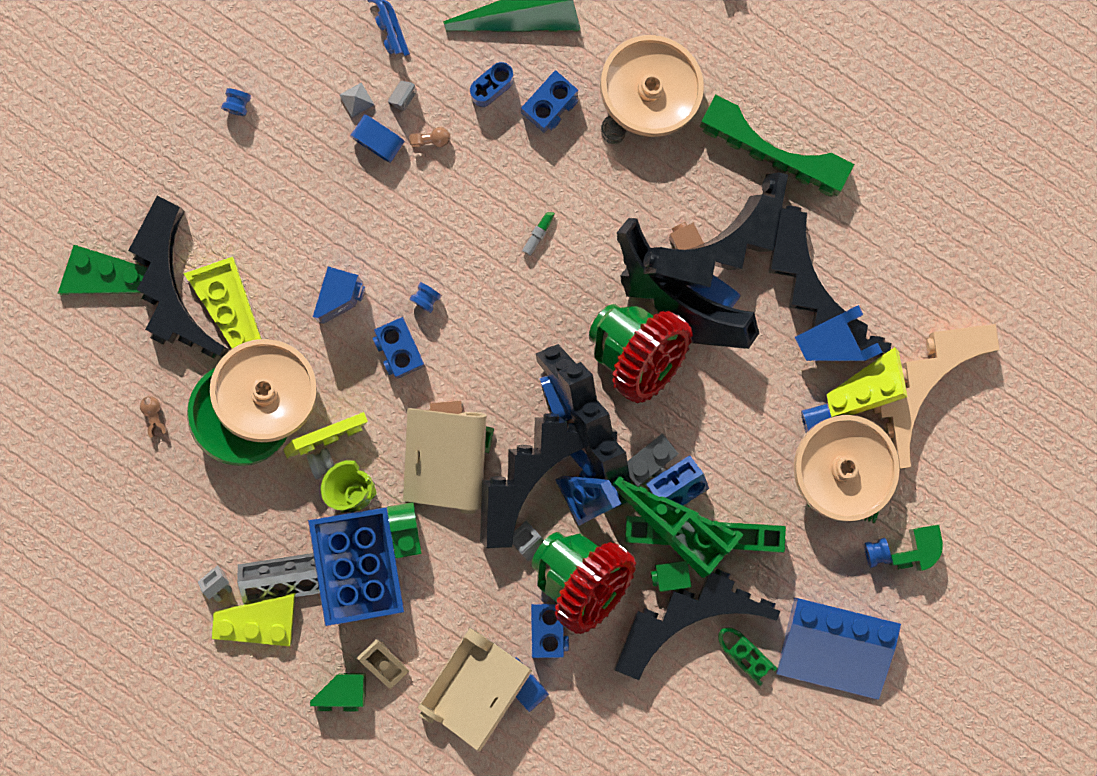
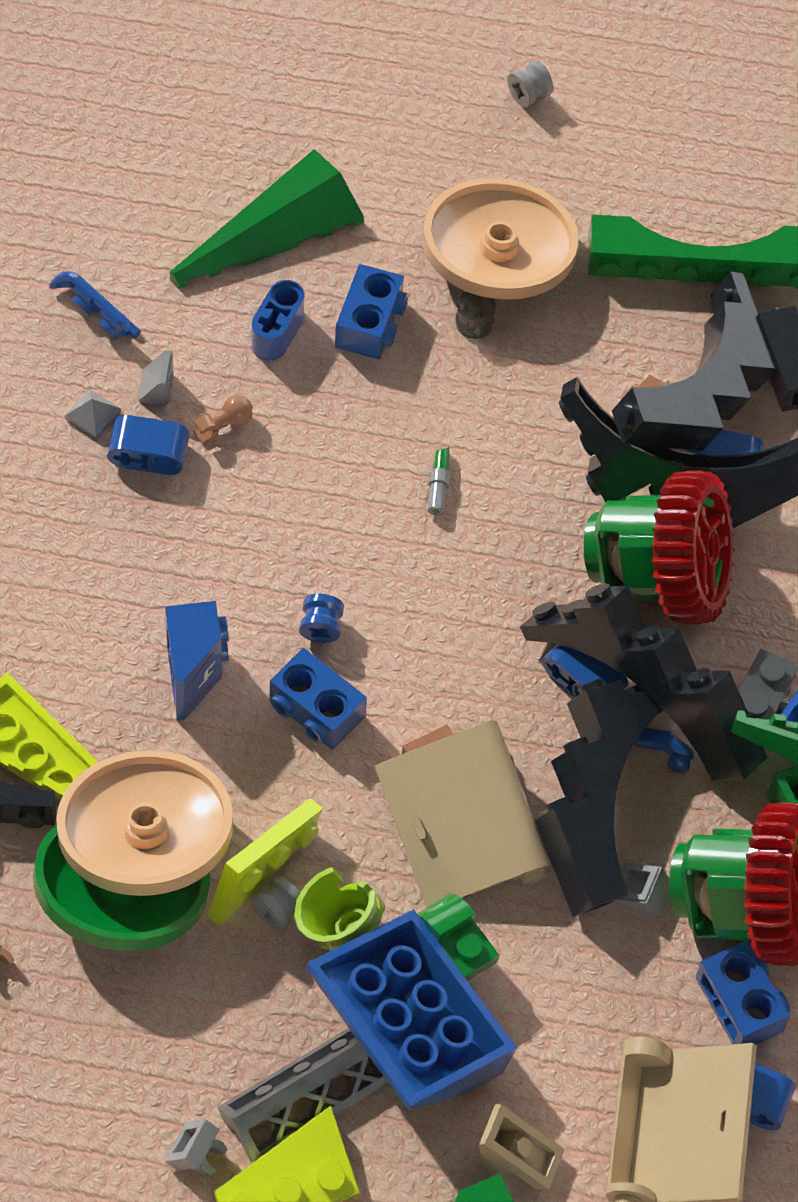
camera: 30 degrees left, 25 degrees down
(587, 496) = (704, 774): blue wing -> none

